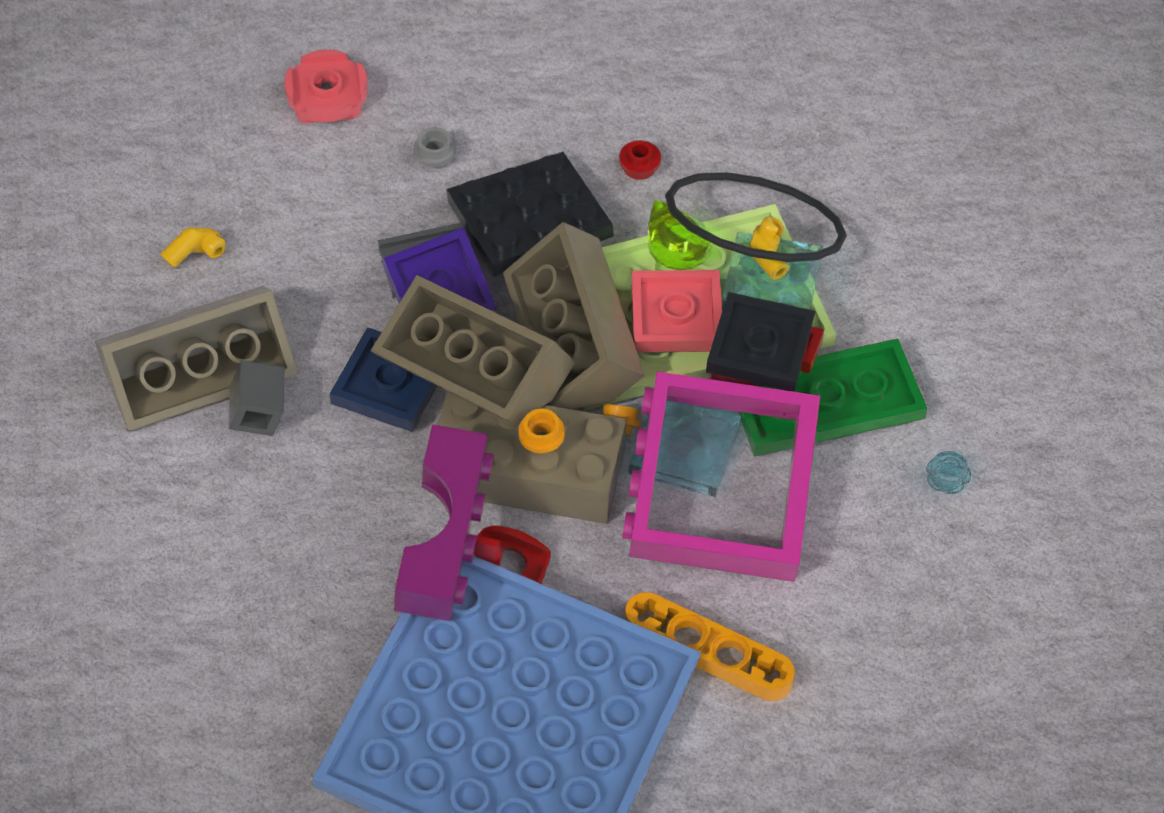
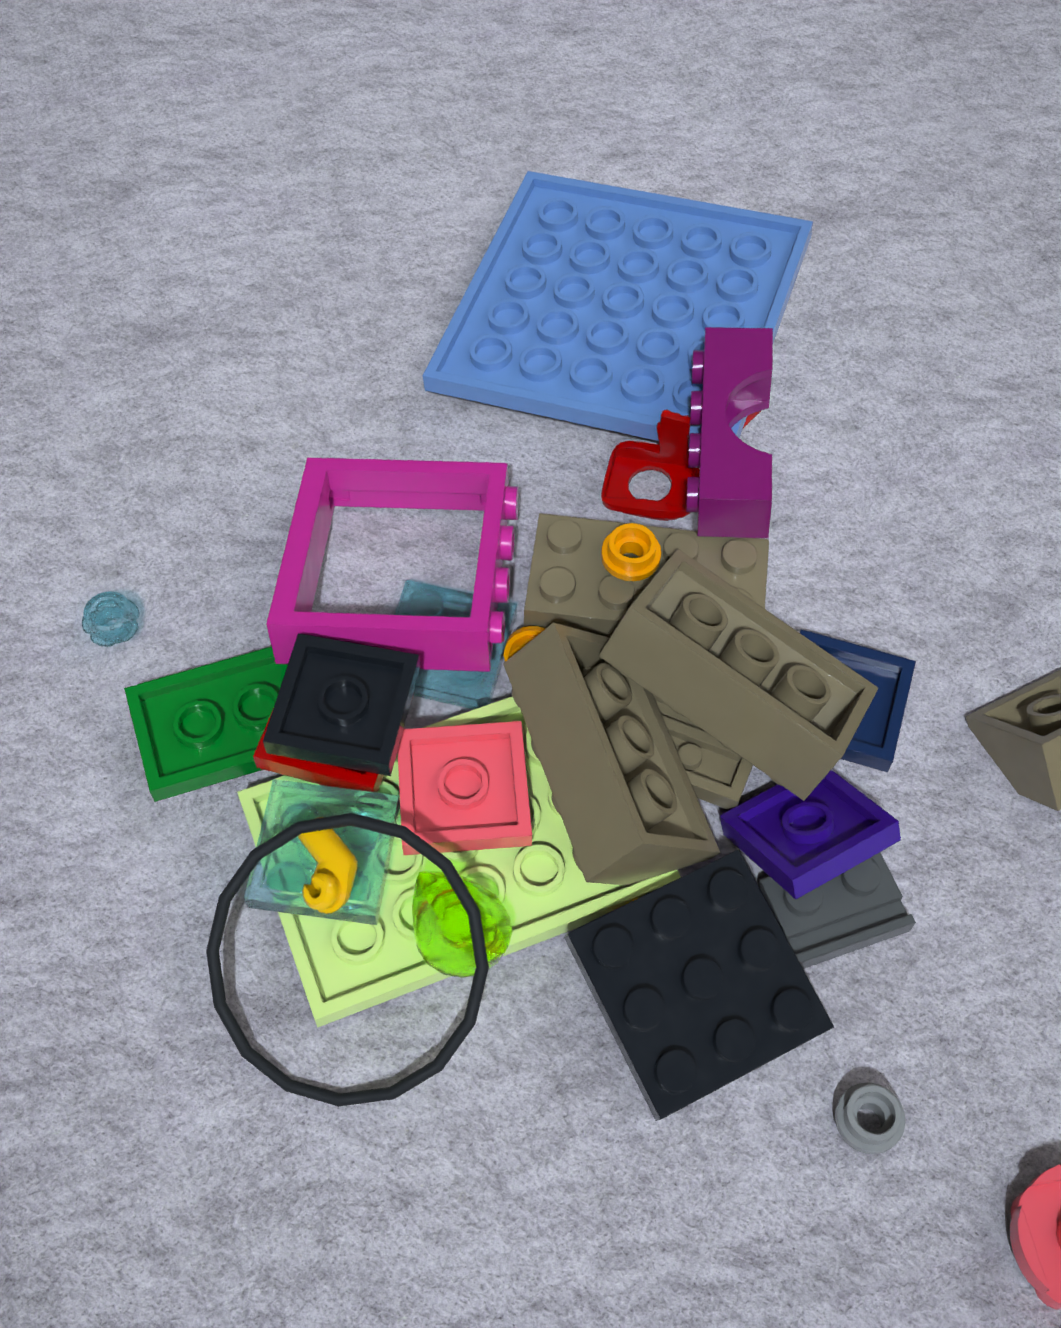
camera: 175 degrees right, 5 degrees up
(256, 397) = (1008, 647): dark grey brick -> none
(639, 159) = (534, 1141): red plate -> none
(713, 639) = (410, 415): light orange beam -> none

